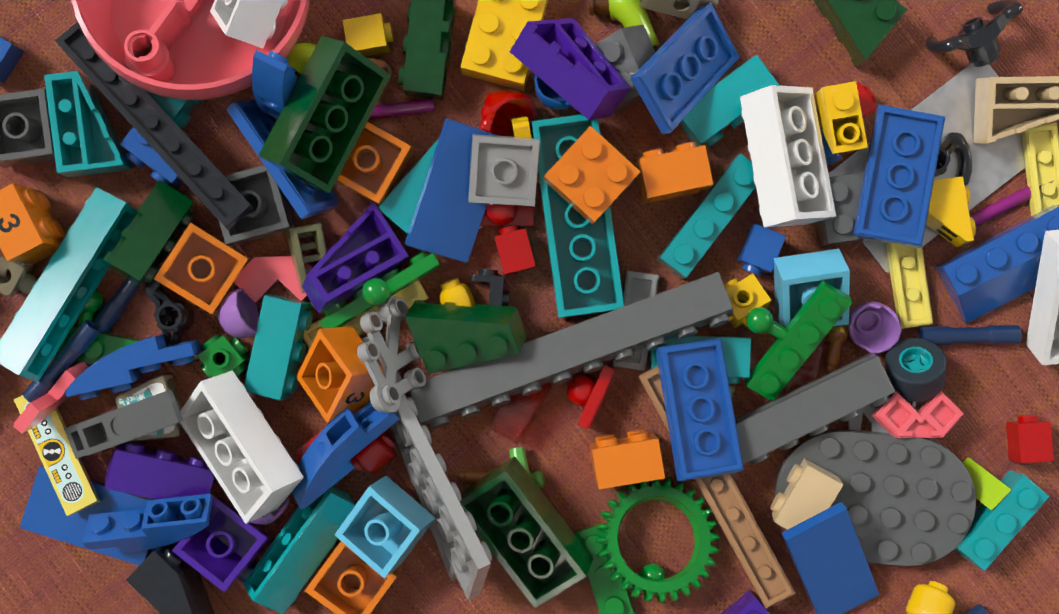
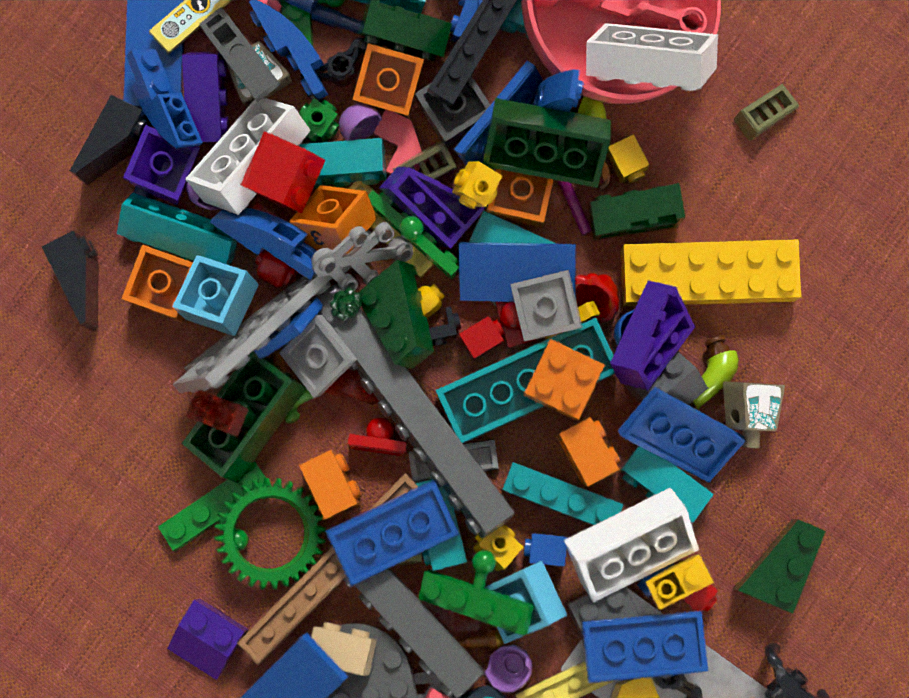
camera: 75 degrees right, 5 degrees down
(270, 414) = (282, 172): none -> red slope
(348, 206) = (476, 185): none -> yellow brick
(437, 387) = (346, 304): none -> dark green plant
(446, 447) = (298, 323): none -> blue tile
(484, 433) = (318, 356): none -> light grey plate
(515, 561) = (217, 412): none -> clear red slope

